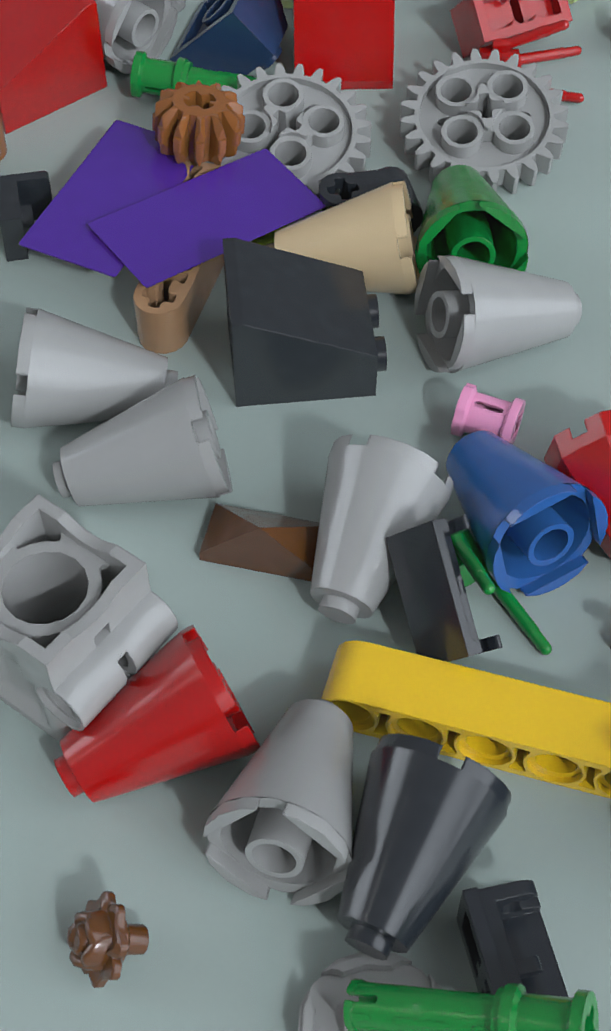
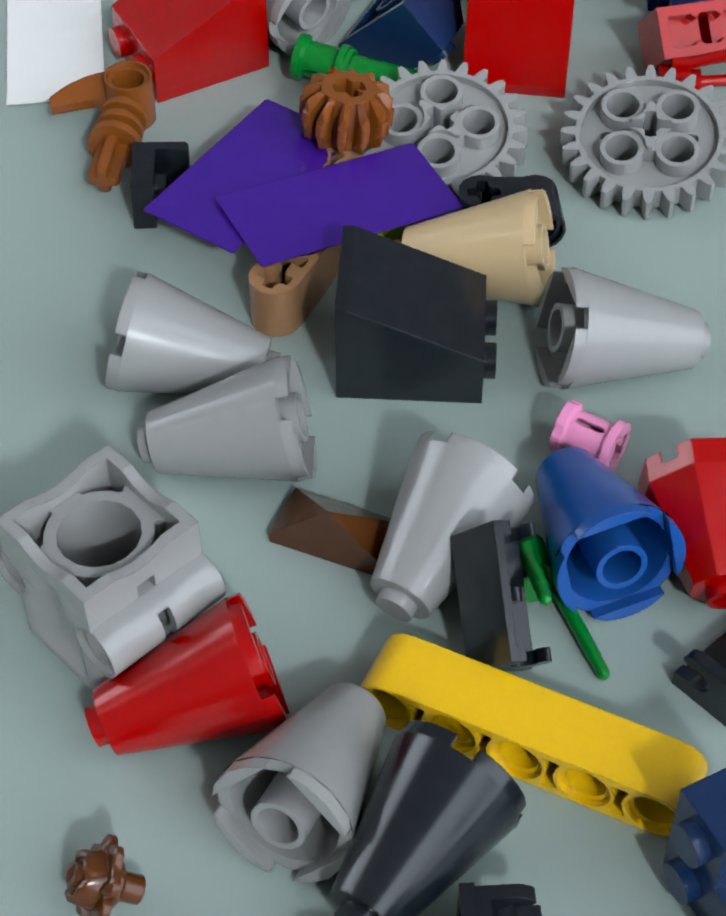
camera: 10 degrees right, 5 degrees down
(470, 222) = (609, 239): green cone -> none

